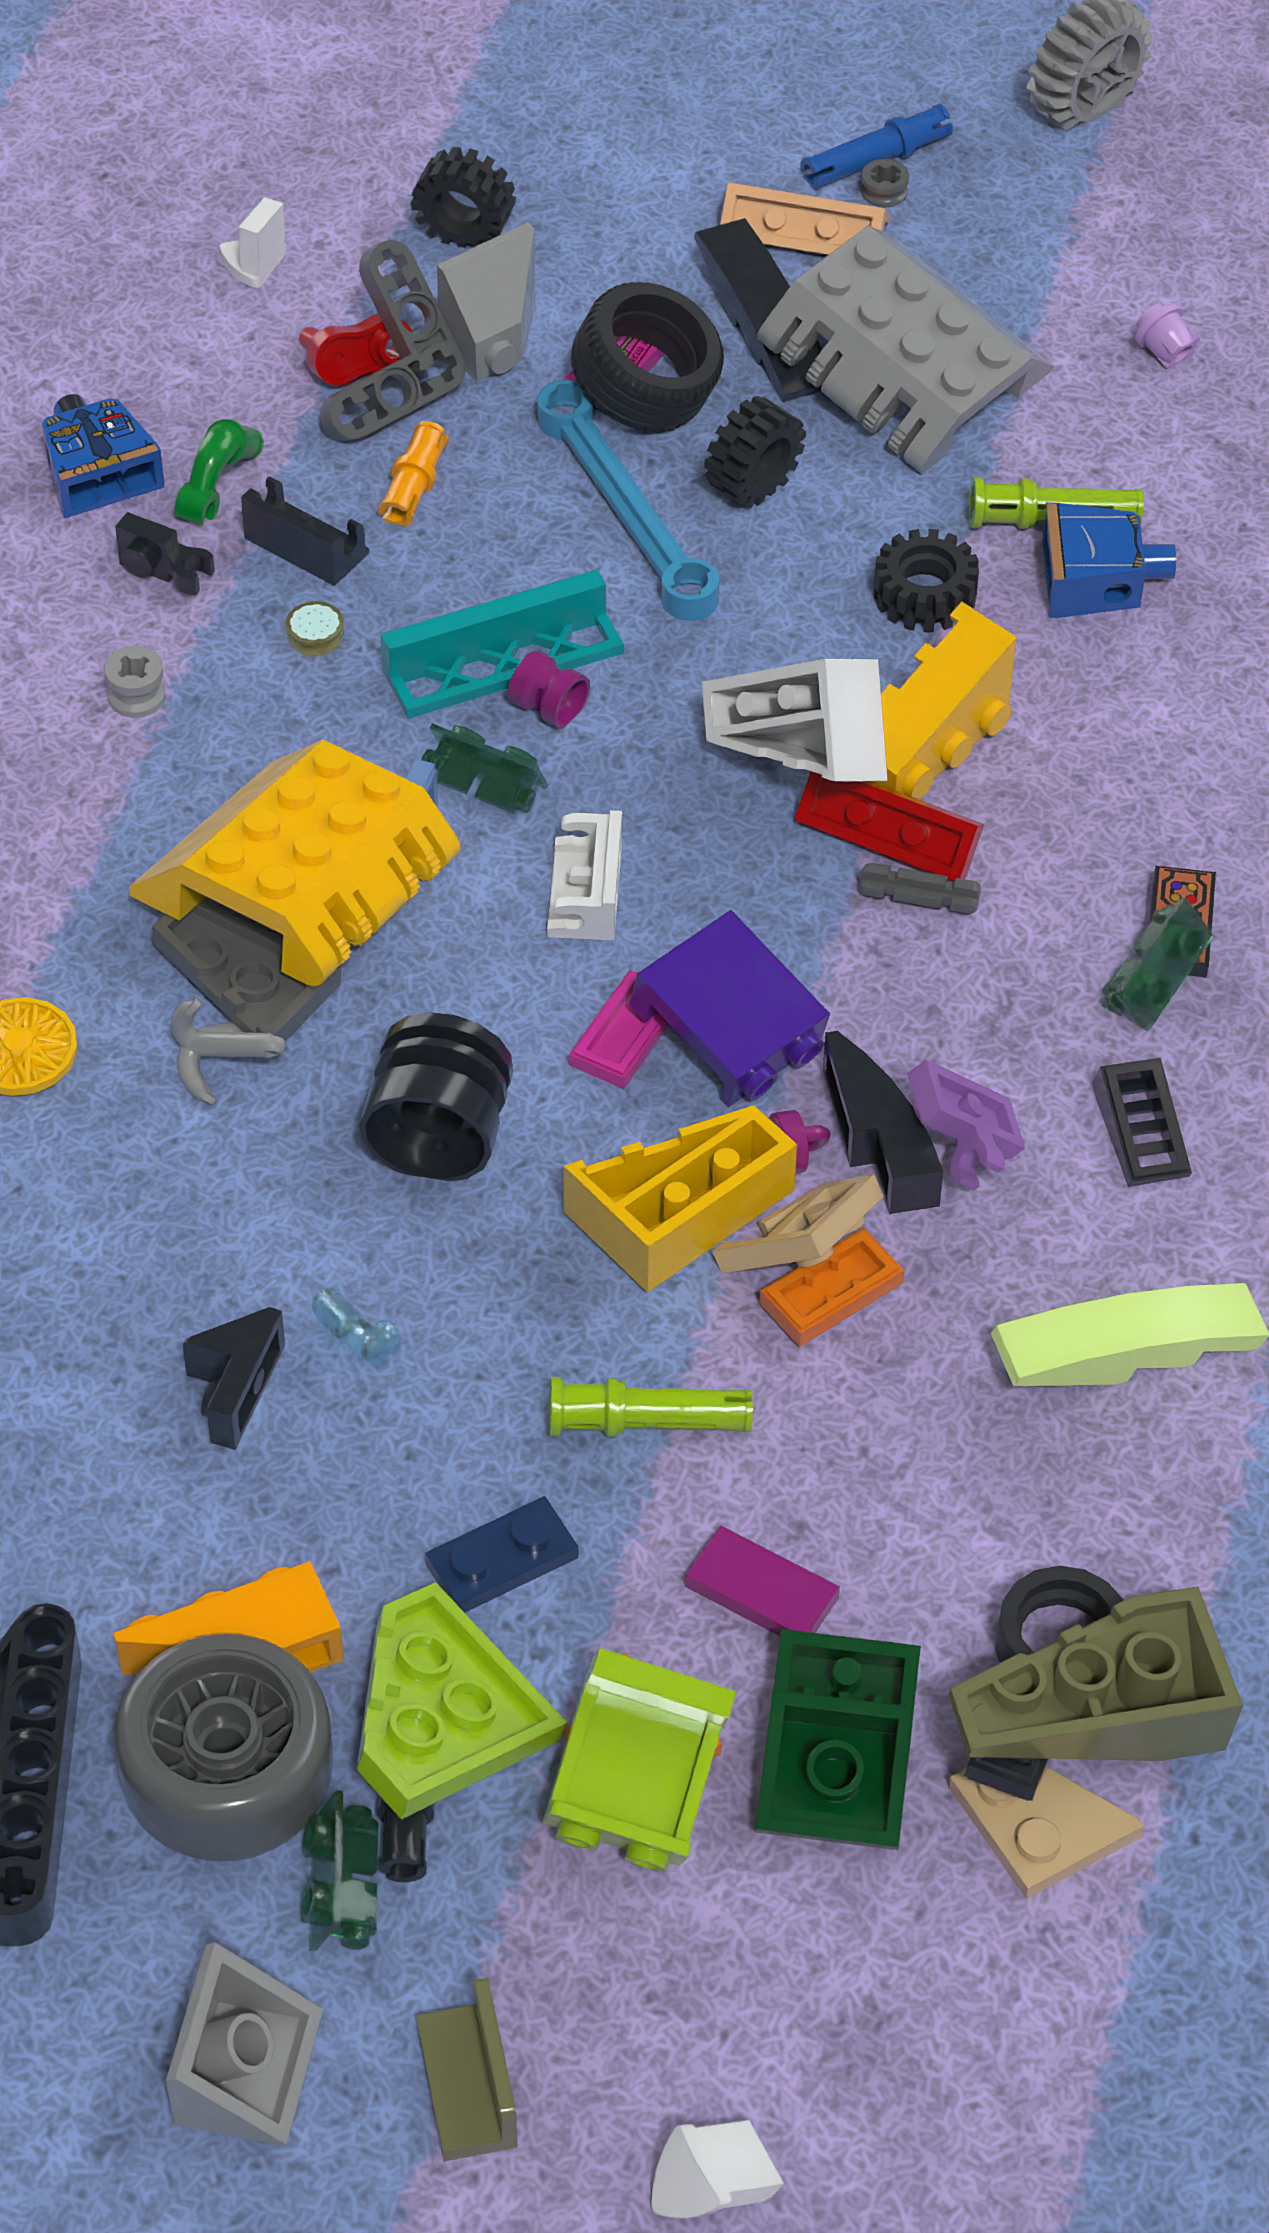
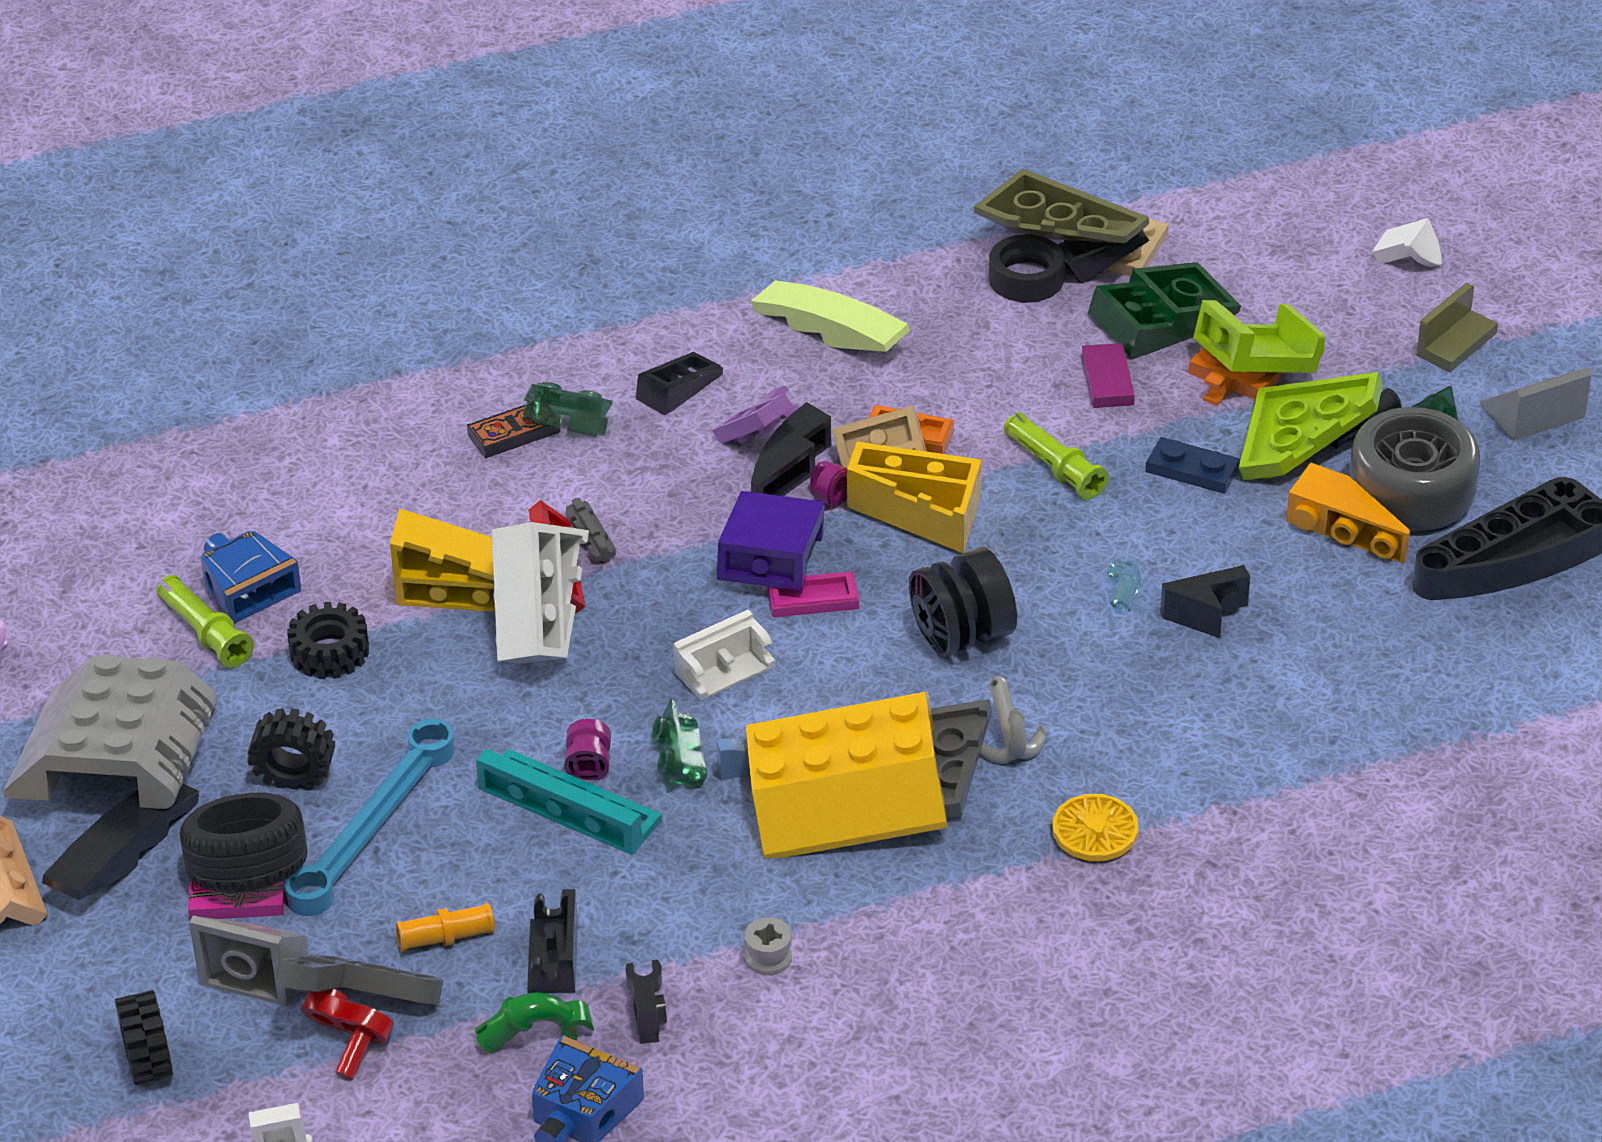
camera: 125 degrees left, 10 degrees down
(315, 628) = (630, 900): tile -> none

